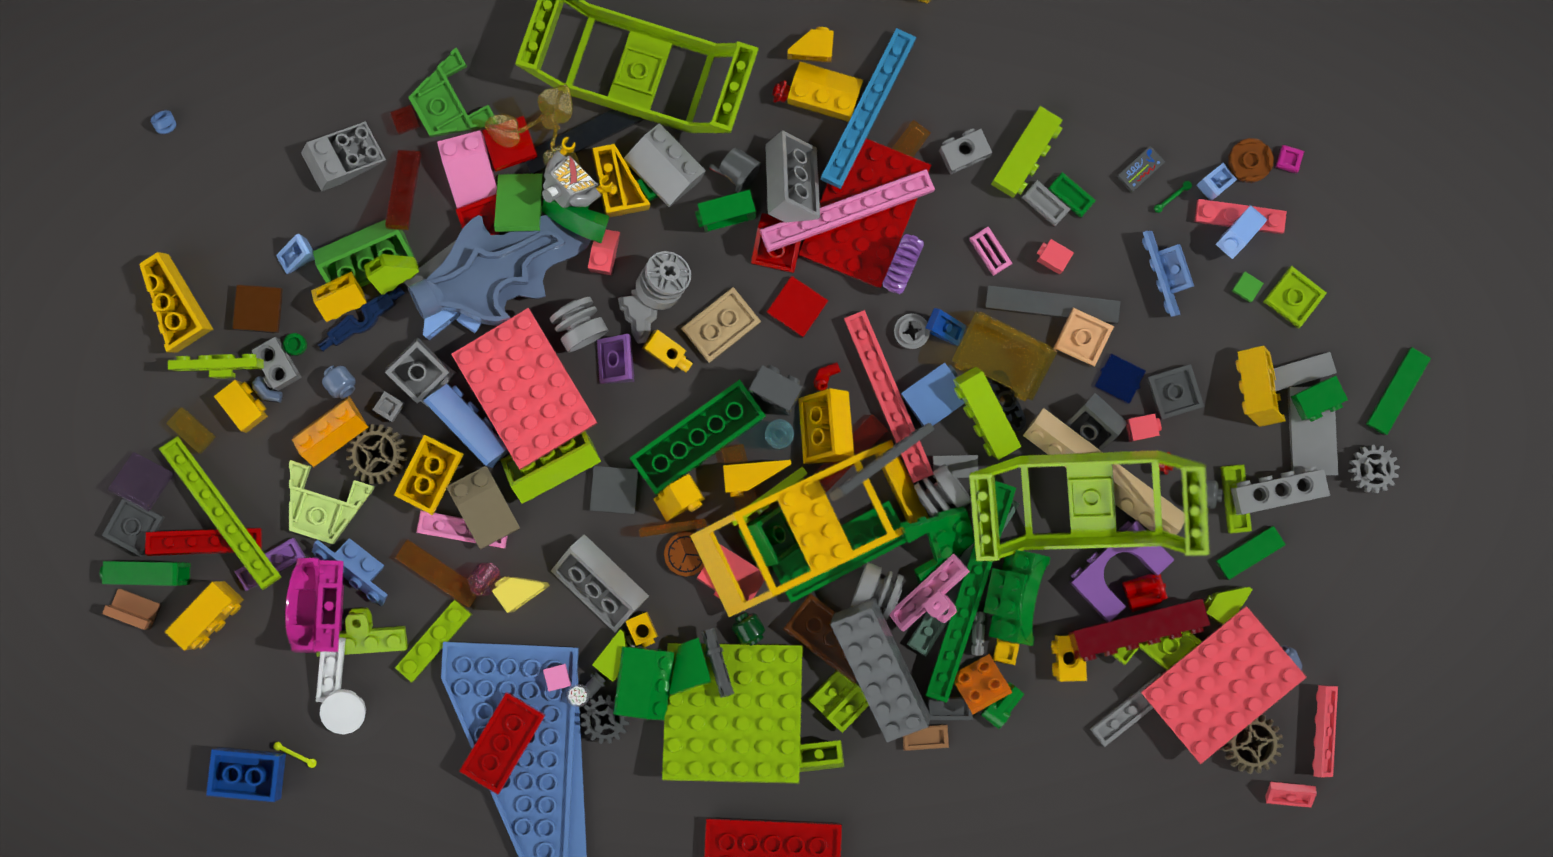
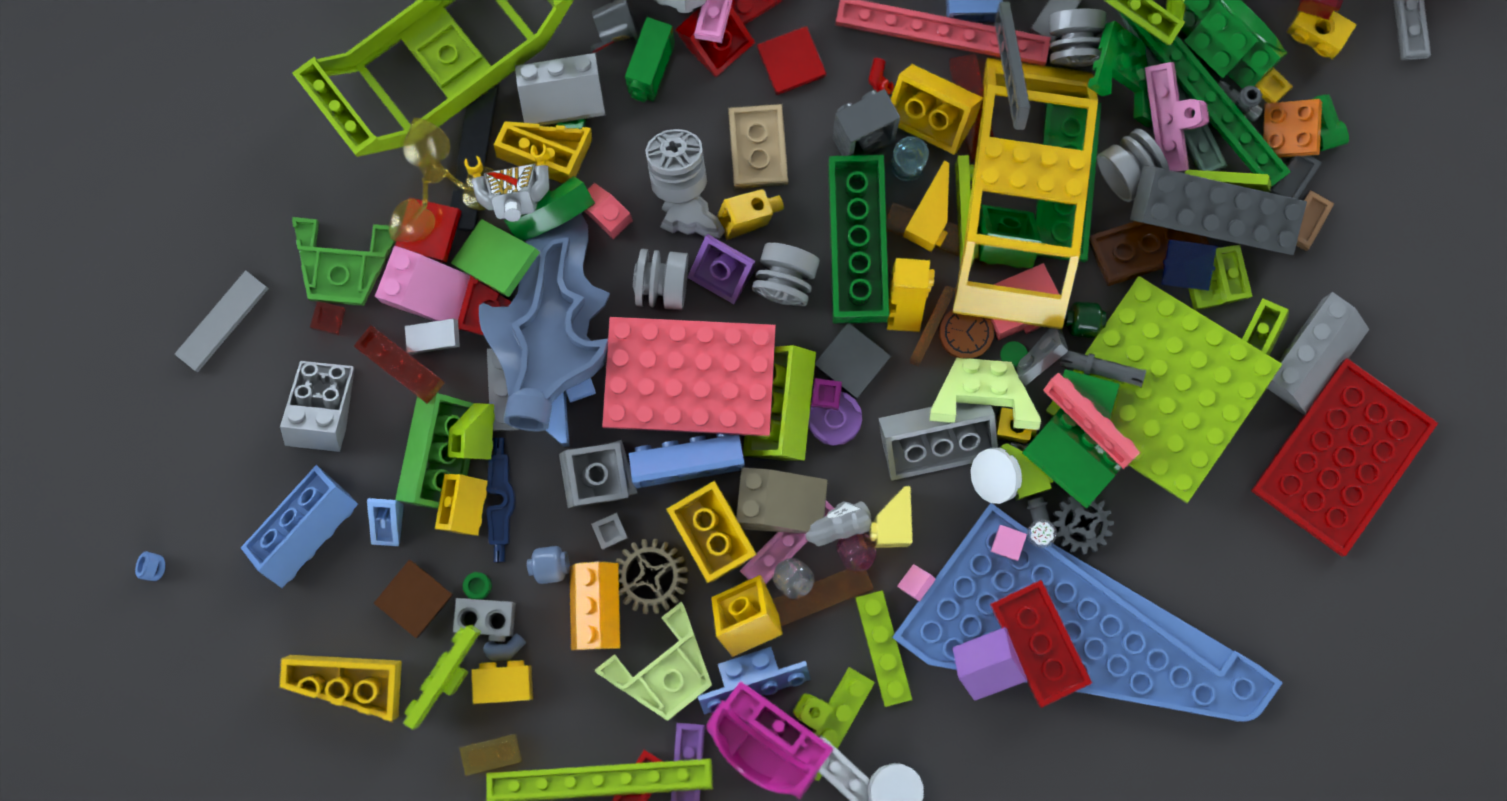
camera: 55 degrees left, 5 degrees down
(254, 200) = (298, 527): none -> medium blue slope
(356, 50) = (221, 321): none -> light grey tile
(391, 535) = (745, 616): none -> yellow slope
(437, 550) = (793, 578): none -> clear head
(439, 197) = (432, 336): none -> tile
(464, 717) = (988, 664): none -> medium lavender slope
(490, 633) = (916, 582): none -> bright pink tile
(493, 556) = (840, 523): none -> light grey rock
(567, 504) = (836, 426): none -> medium lavender tile
(577, 488) = (826, 394): none -> magenta tile
(597, 639) = (996, 475): none -> white tile
(638, 405) = (787, 269): none -> light grey wheel
(655, 590) = (985, 384): none -> yellowish green wing
(671, 688) = (1091, 421): none -> coral plate
(693, 596) = (1013, 352): none -> green piece
(702, 616) = (1042, 355): none -> dark grey wing
(833, 674) = (1188, 265): none -> clear blue piece
(833, 802) = (1318, 351): none -> light grey slope
(910, 662) = (1249, 180): none -> lime tile
(984, 640) = (1249, 98): none -> dark grey pin

